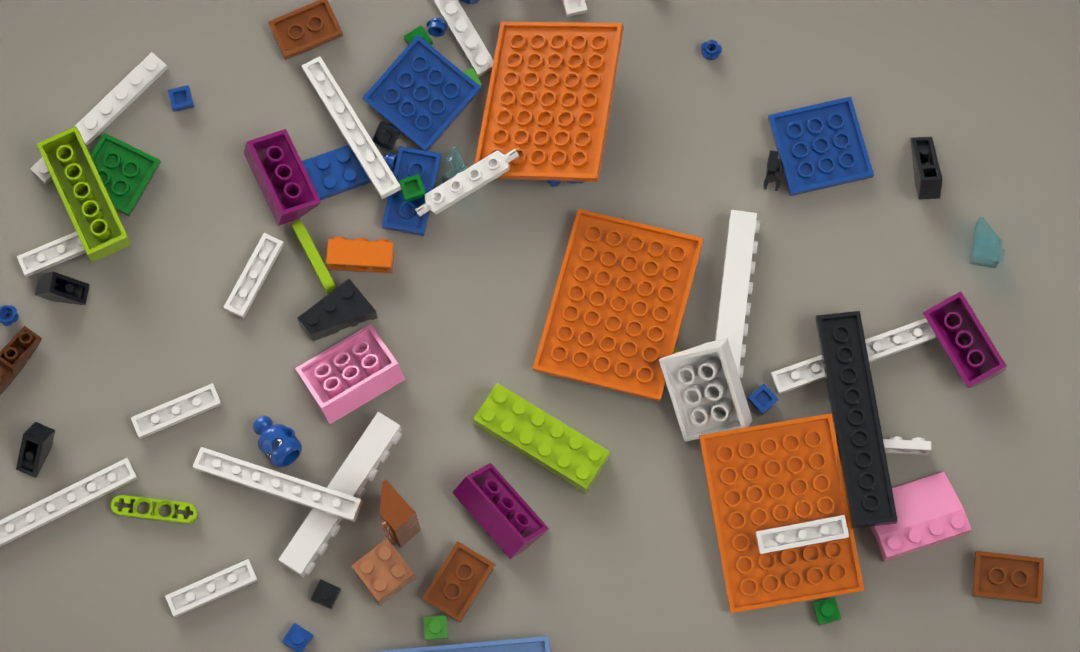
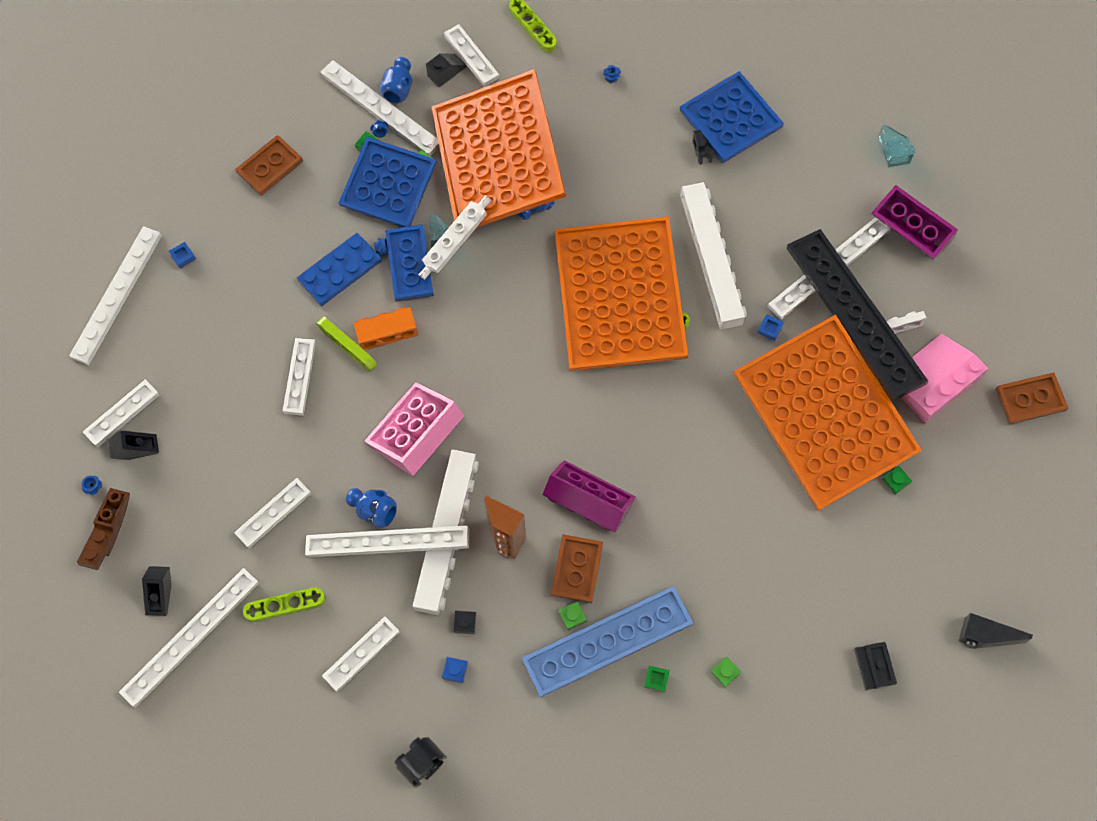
camera: 20 degrees left, 5 degrees down
(84, 194) = (125, 357): lime brick -> none
(123, 171) = (147, 334): green plate -> none
(281, 176) = (293, 287): magenta slope -> none
(337, 311) = (383, 380): black wedge -> none
(351, 127) = (339, 228): white plate -> none
(383, 571) = (508, 583): nougat brick -> none
(386, 135) = (370, 226): black plate -> none
(412, 188) = (409, 258): green plate -> none
(541, 438) = (599, 423): lime brick -> none
(706, 390) = (722, 333): white slope -> none
(802, 534) = (853, 421): white plate -> none
(926, 168) = (823, 105): black slope -> none

